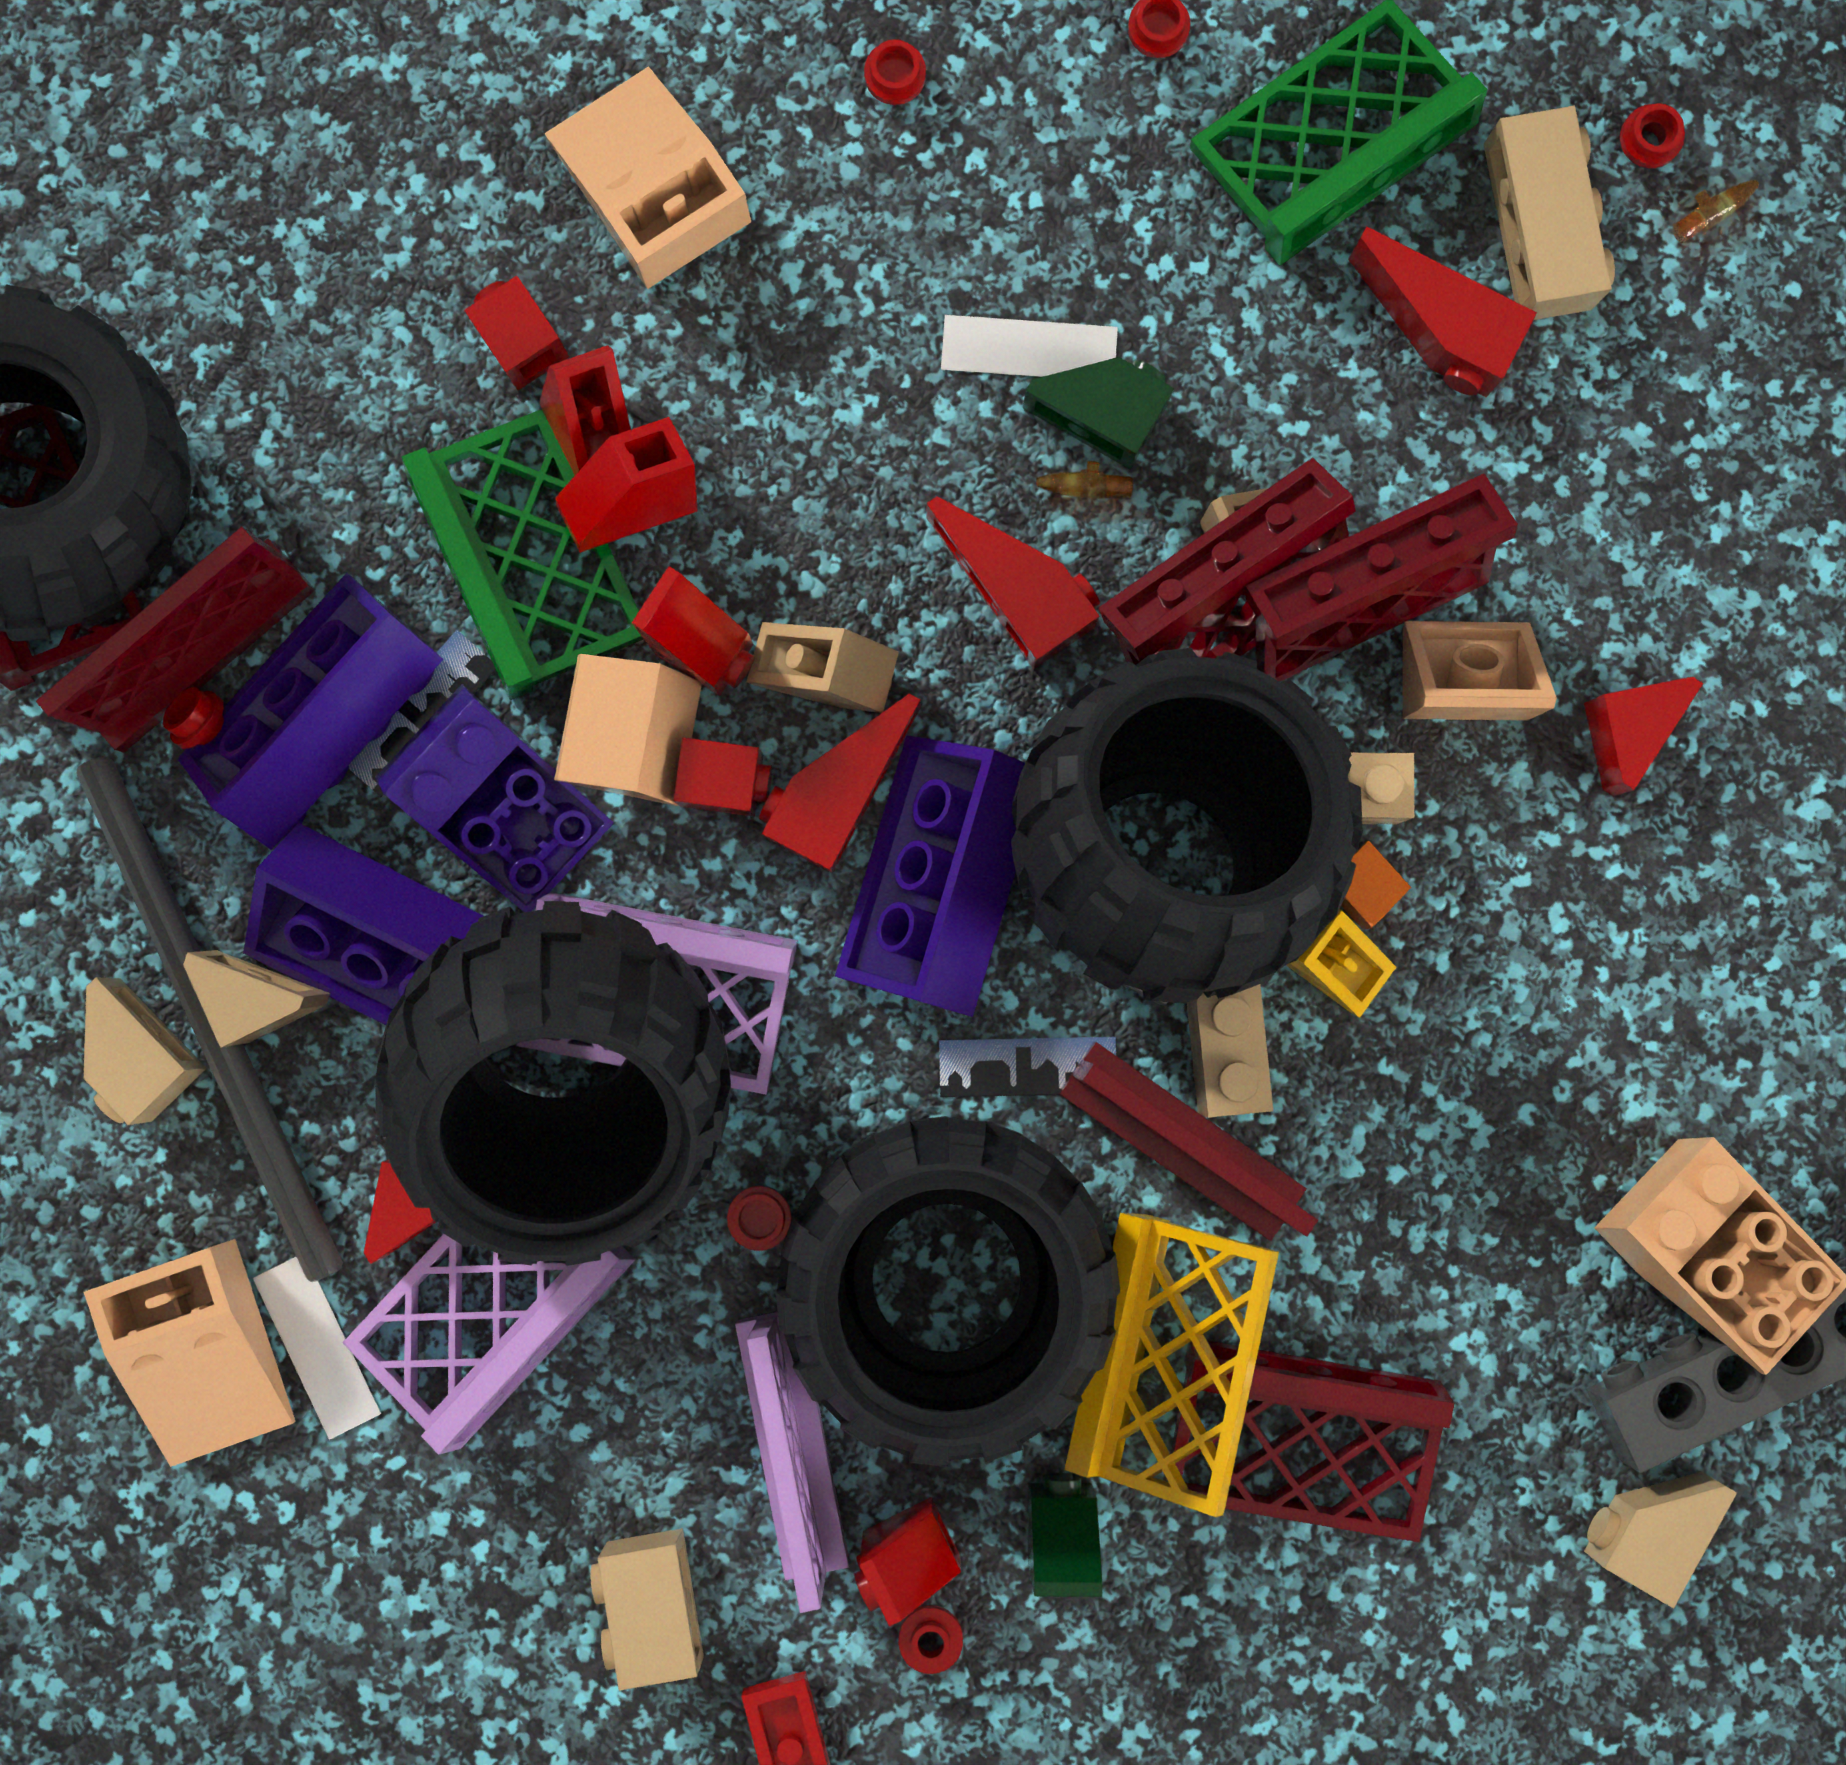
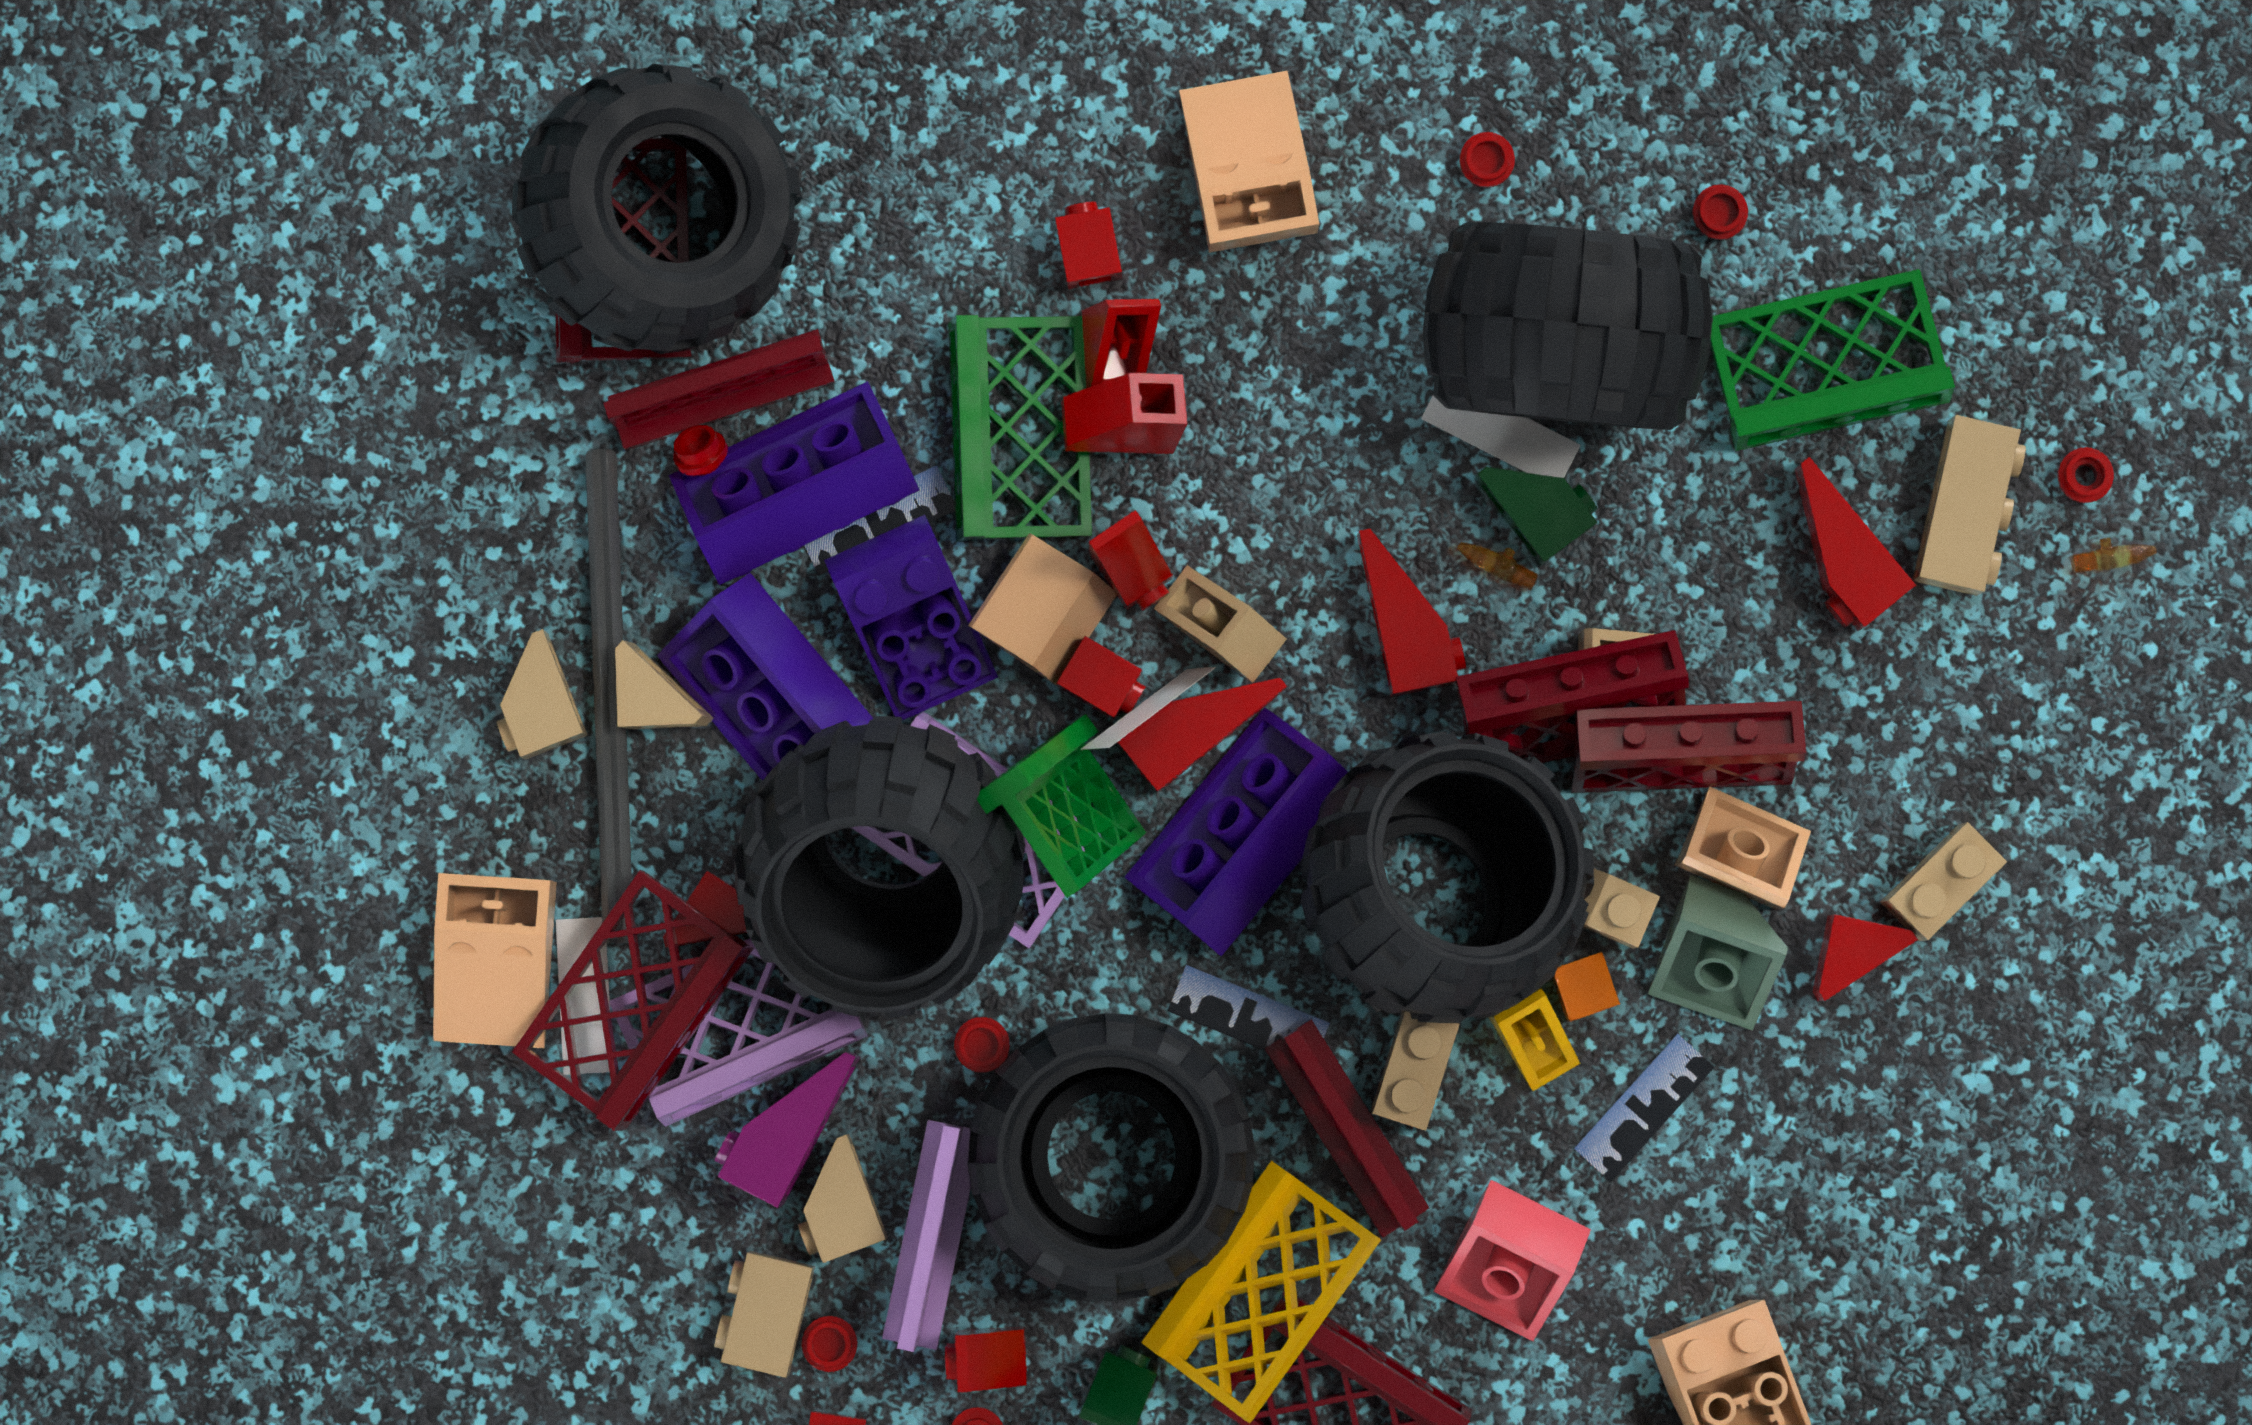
camera: 25 degrees right, 0 degrees up
(407, 1366) = (672, 1027): none -> dark red fence
(581, 1431) = (778, 1142): none -> magenta slope
(681, 1458) = (841, 1207): none -> tan slope
(697, 900) = (1044, 776): none -> green fence
(731, 1608) = (829, 1343): none -> red plate
(781, 787) = (1148, 708): none -> white sticker
(1058, 166) = (1567, 325): none -> black tyre
(1421, 1206) = (1512, 1260): none -> coral slope
(1481, 985) = (1644, 1107): none -> sticker
(1496, 790) = (1718, 955): none -> sand green slope
(1698, 611) = (1943, 881): none -> tan brick

